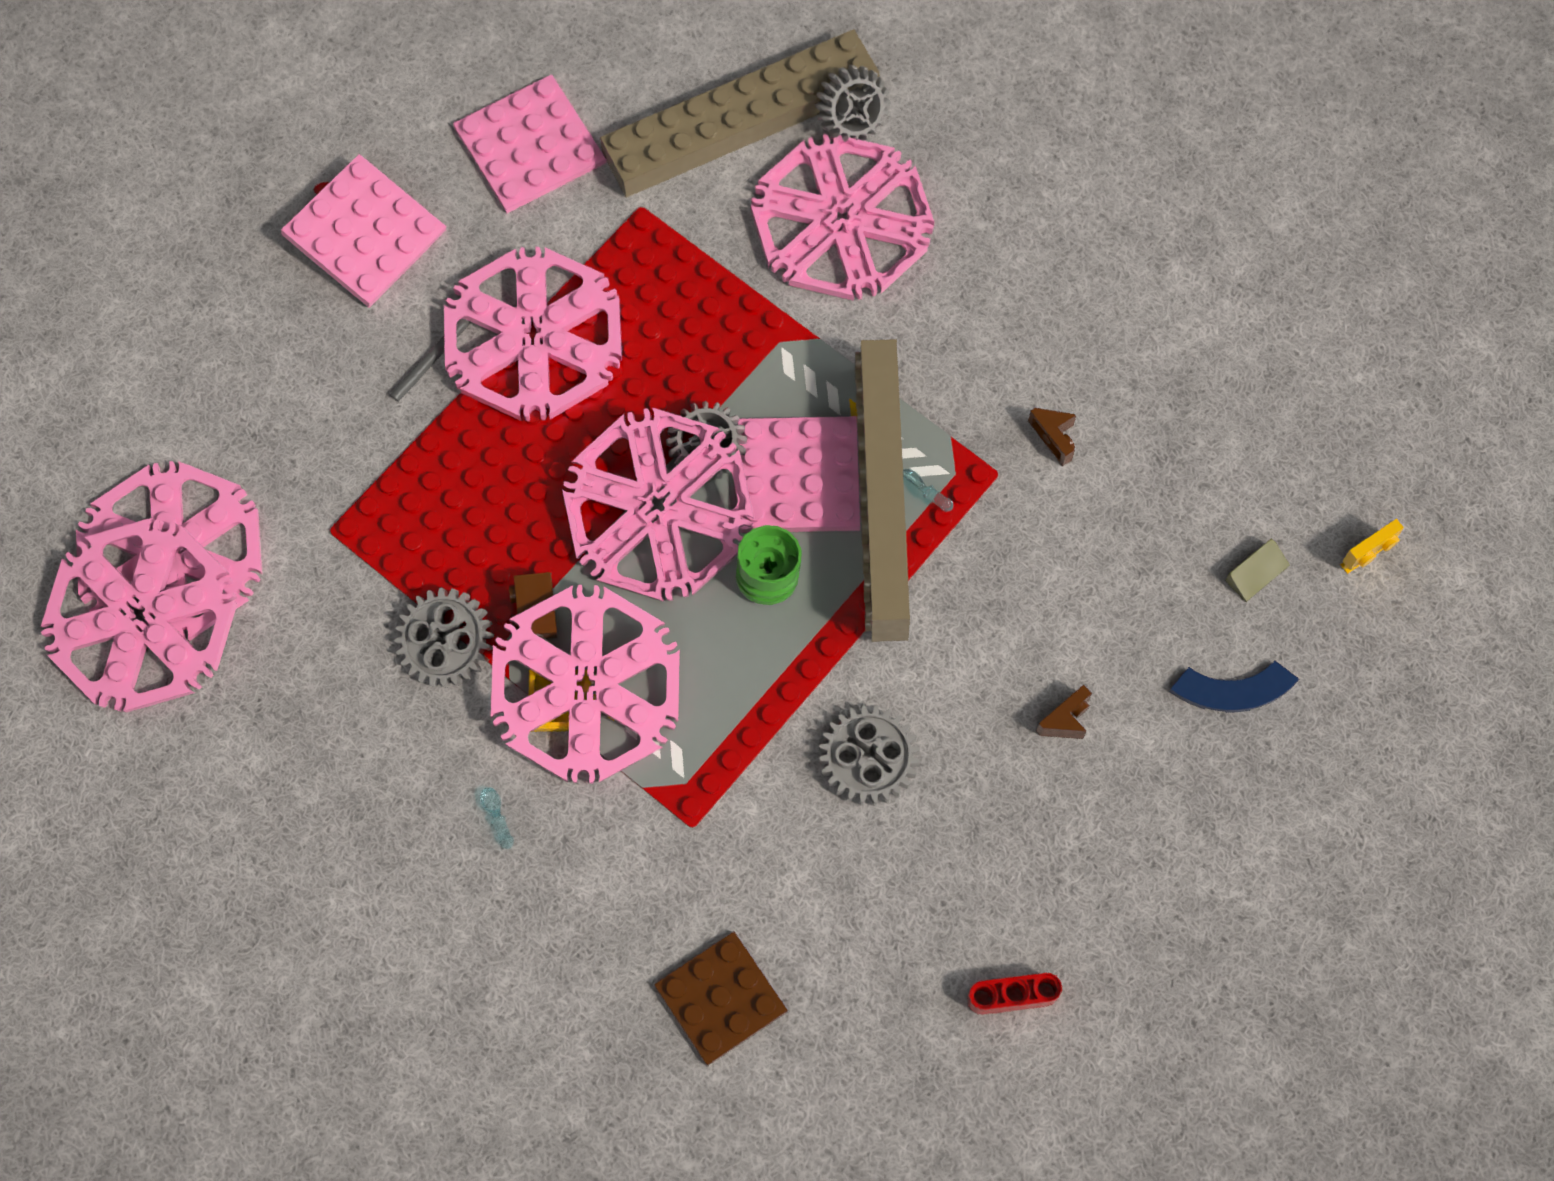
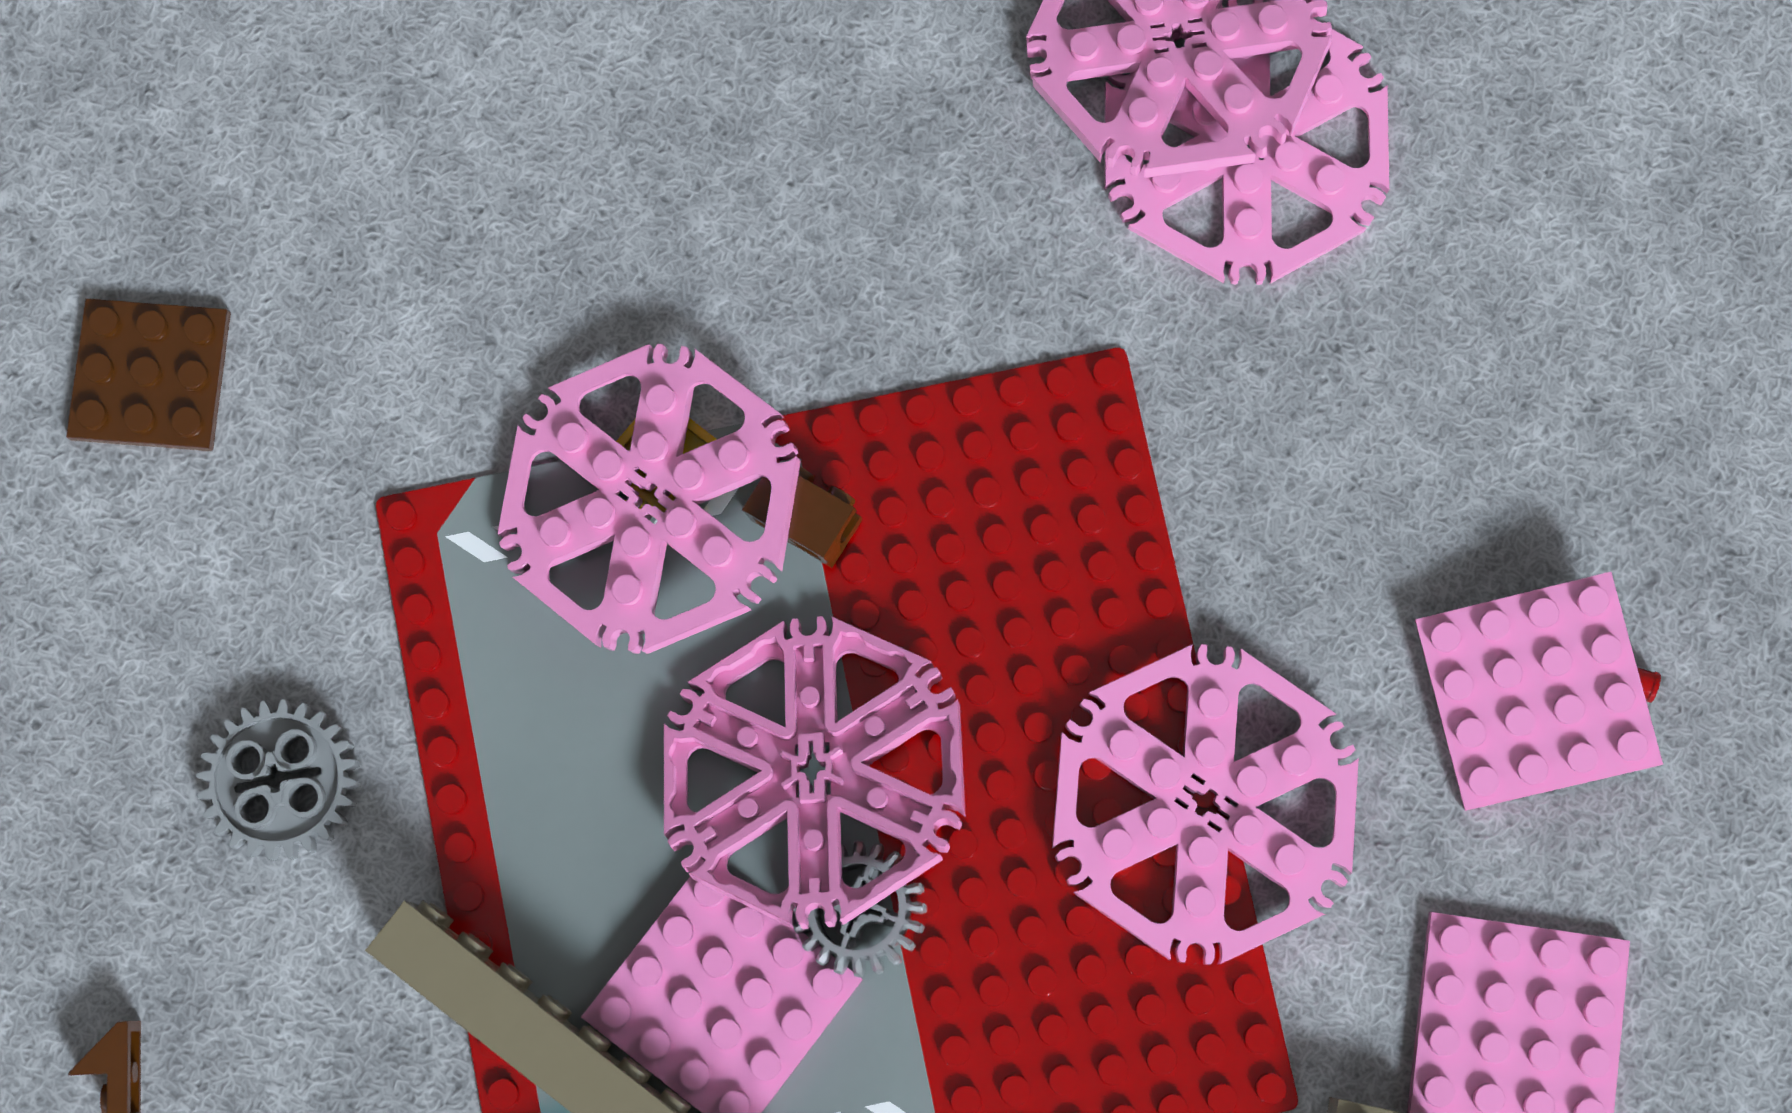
camera: 130 degrees right, 10 degrees up
(424, 365) = (1271, 630): dark grey bar -> none
(456, 661) = (812, 374): light grey gear -> none
(491, 804) = (601, 286): clear light blue piece -> none
(770, 550) = (584, 851): bright green wheel -> none

